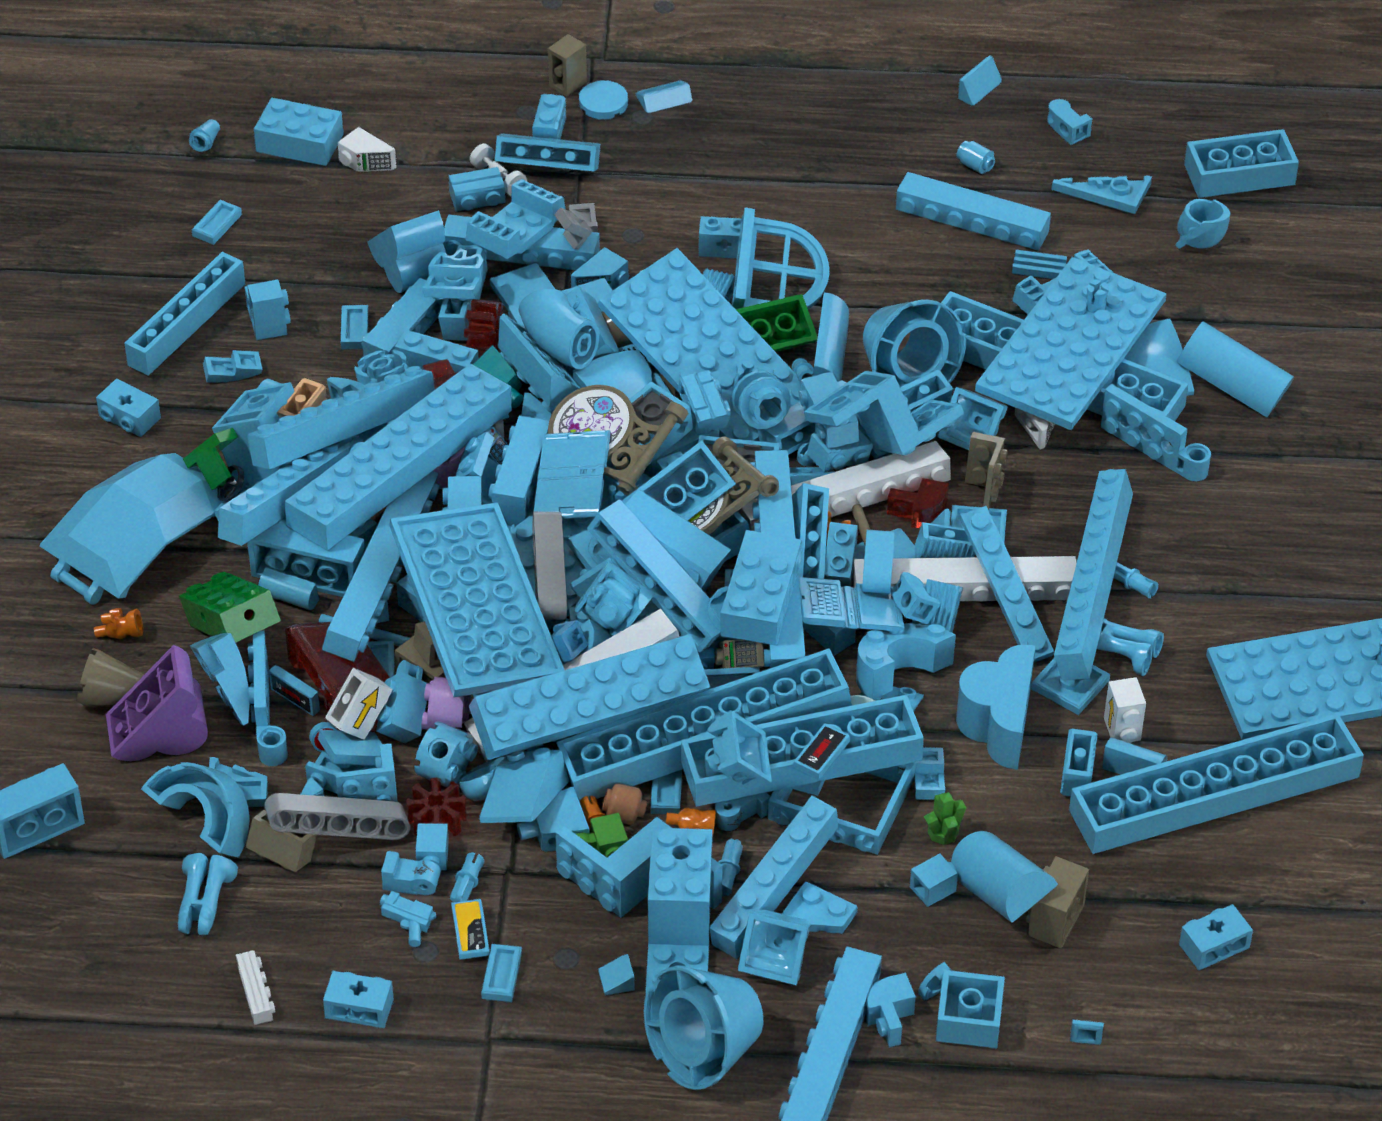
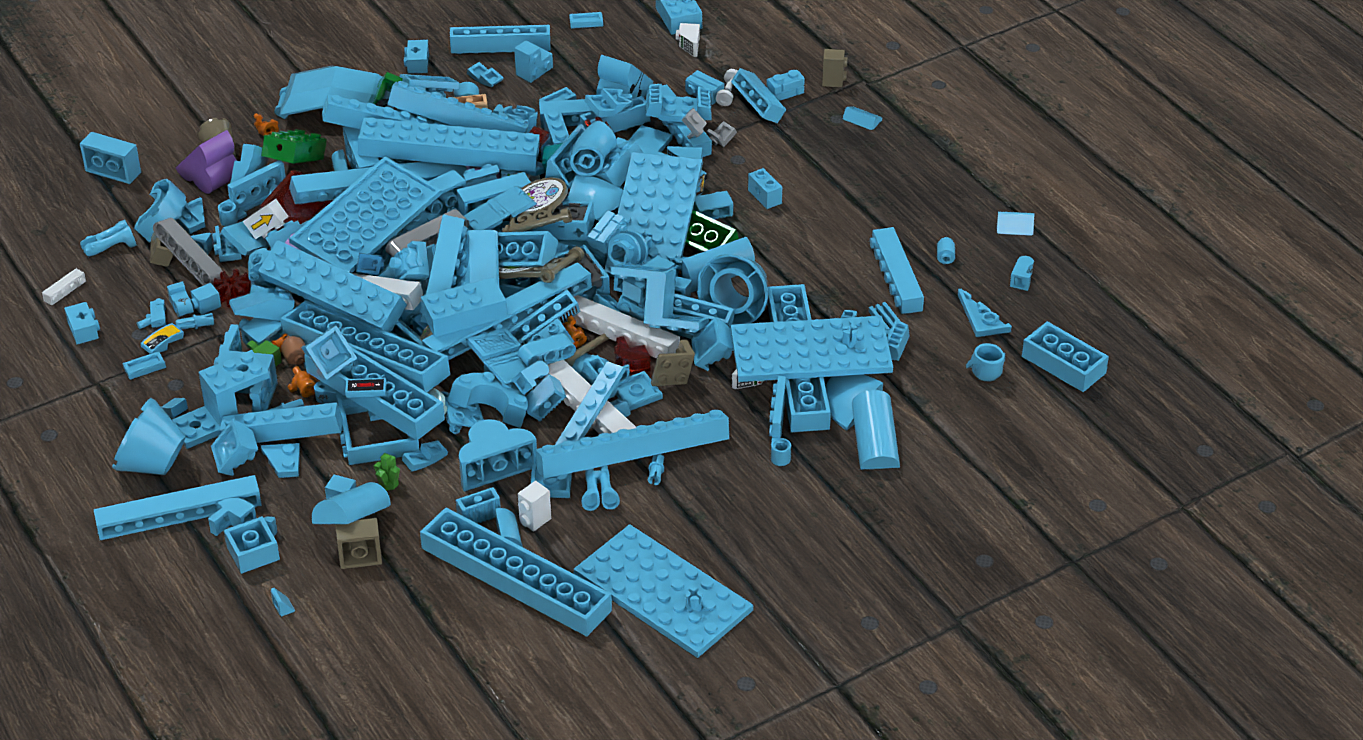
camera: 55 degrees right, 5 degrees down
(370, 783) = (227, 256): medium azure bracket -> none
(603, 99) = (832, 98): medium azure tile -> none
(746, 264) = (749, 195): medium azure window -> none
(1215, 936) = (396, 625): medium azure brick -> none

